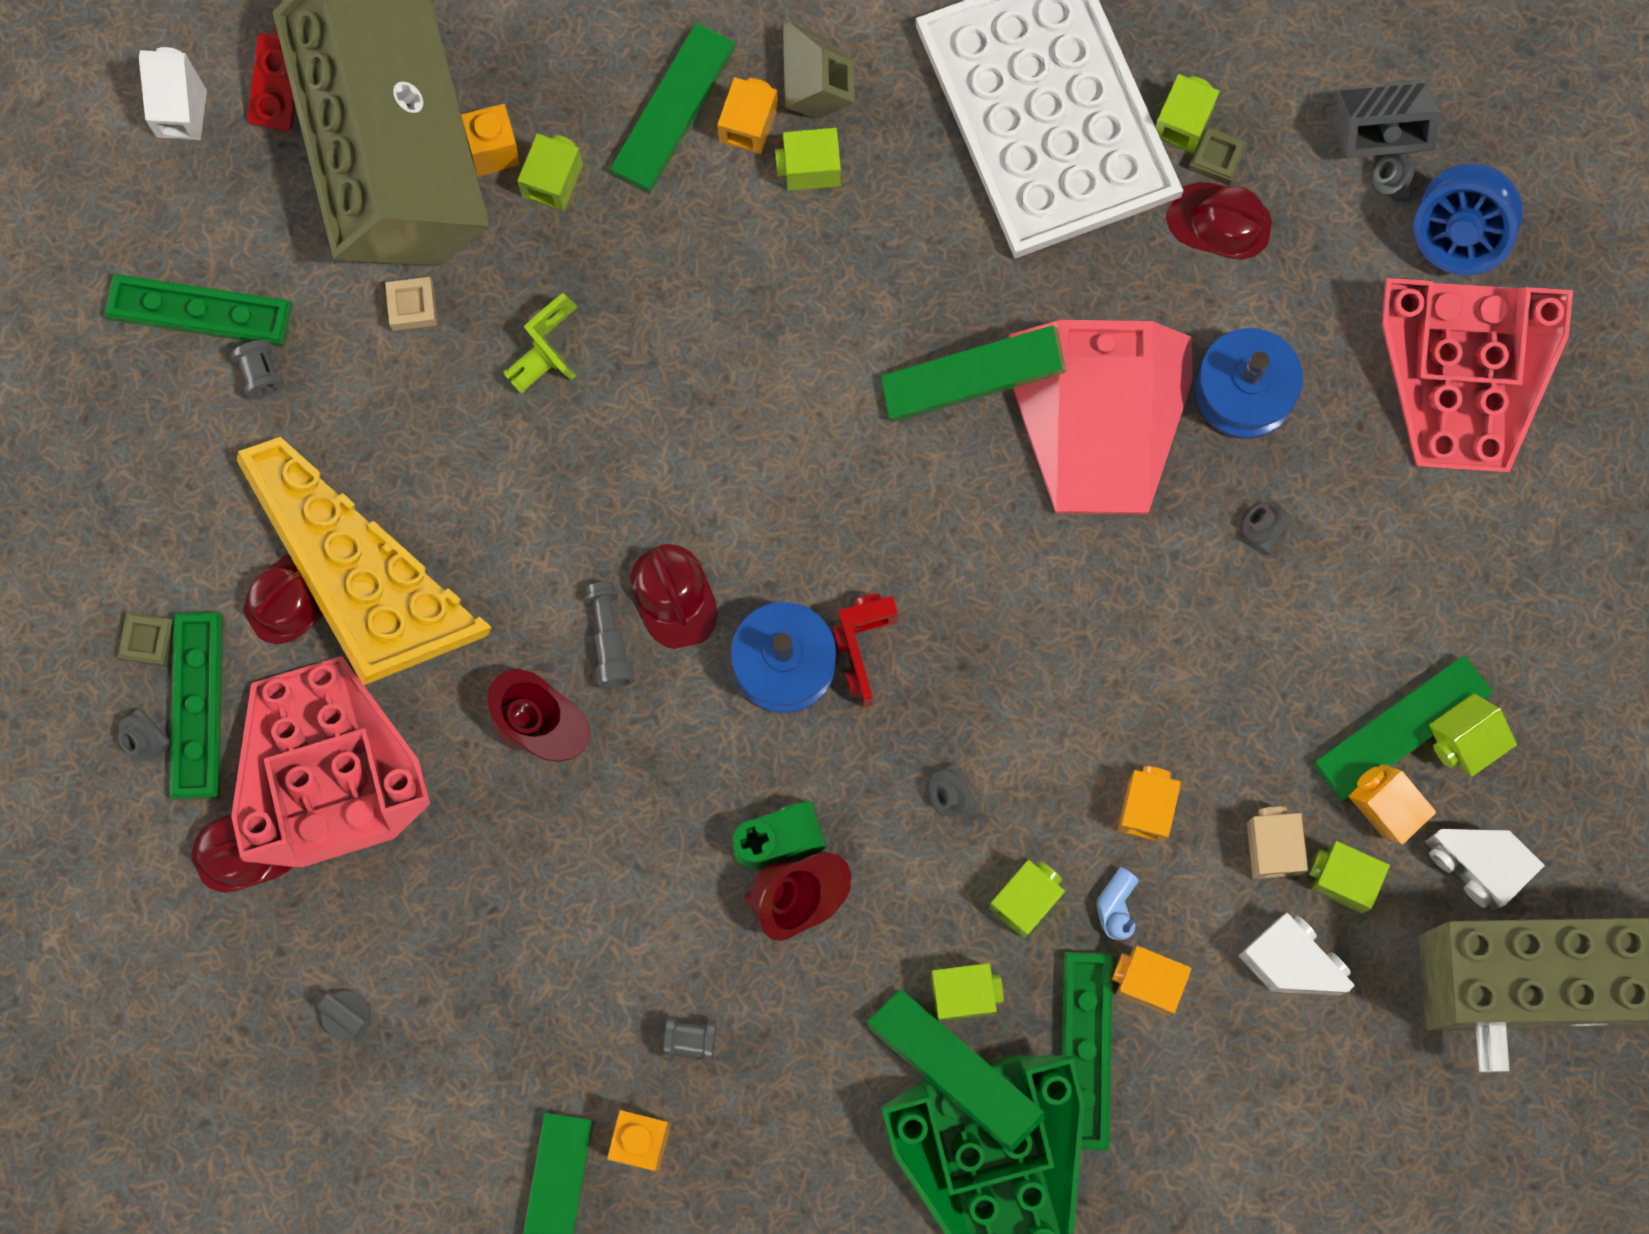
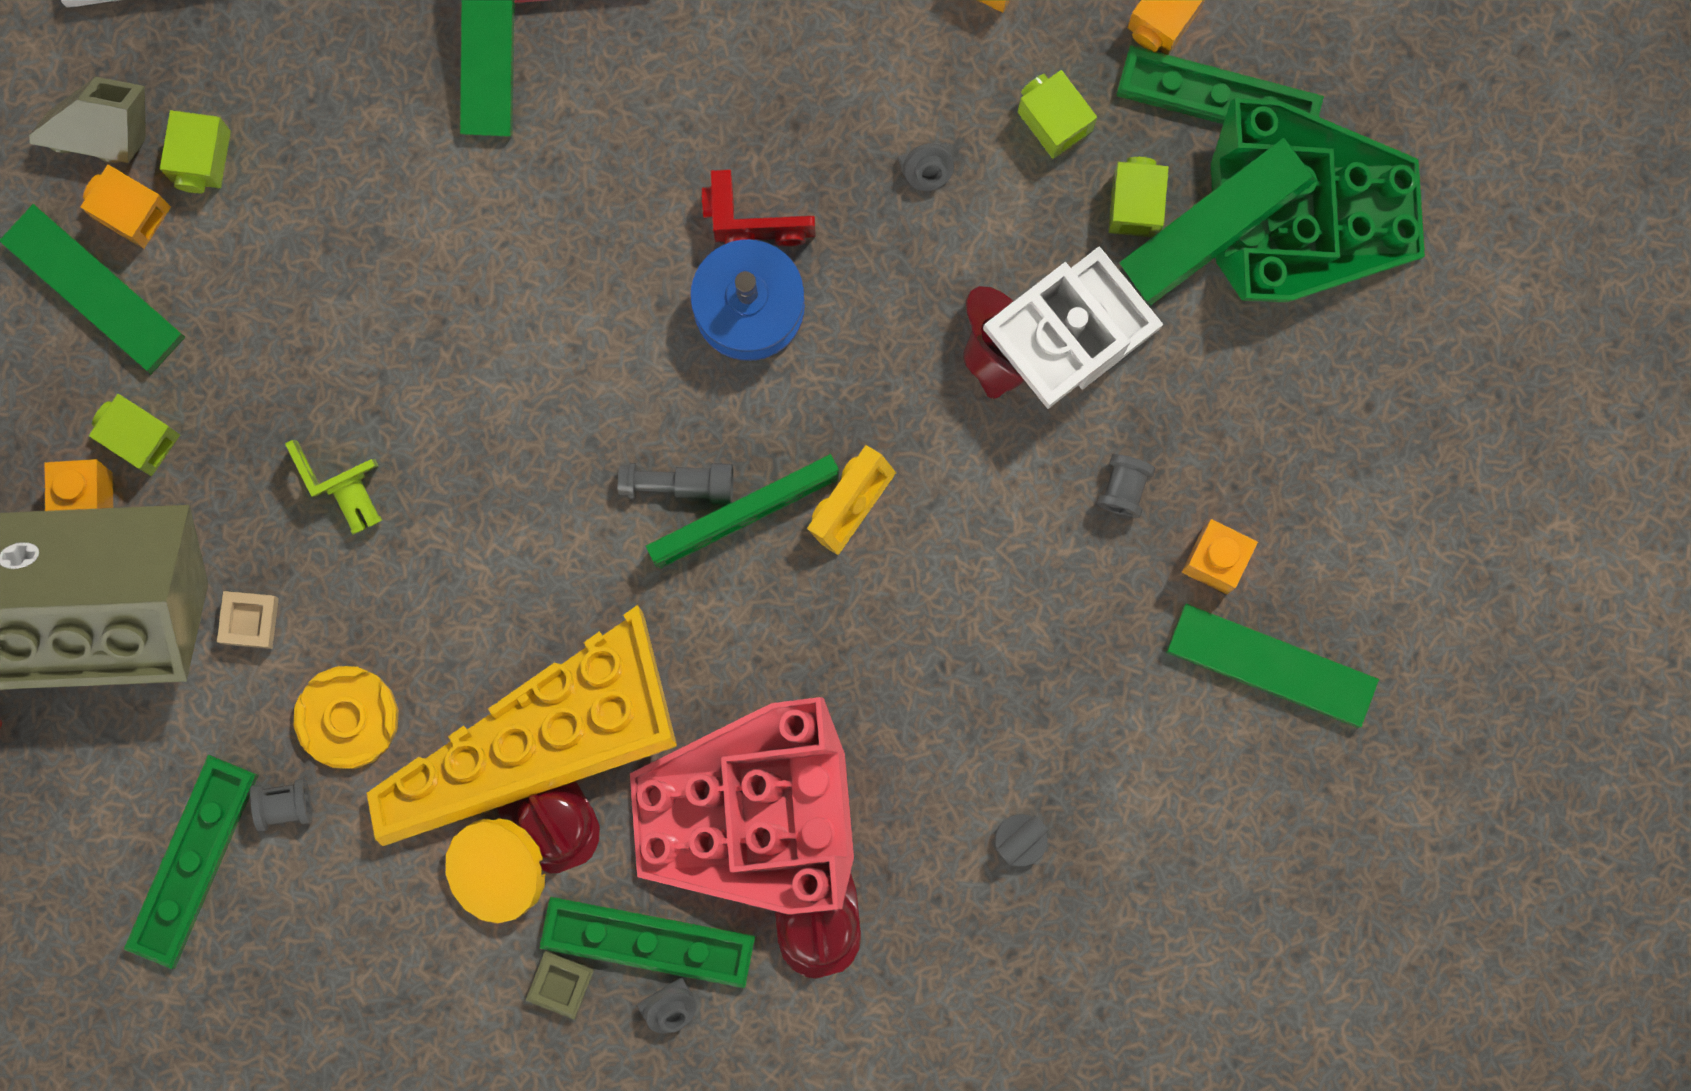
camera: 80 degrees left, 5 degrees up
(231, 558) = (495, 870): none -> yellow tile
(349, 419) = (364, 726): none -> yellow tile
(536, 717) = (752, 571): dark red piece -> none
(591, 699) = (743, 512): none -> green tile
(622, 792) = (852, 499): none -> yellow plate
(674, 596) = (648, 406): dark red piece -> none
(788, 833) = (936, 343): green piece -> none
(822, 955) = (1072, 326): none -> white bracket
(1113, 908) = (1081, 35): light blue arm -> none

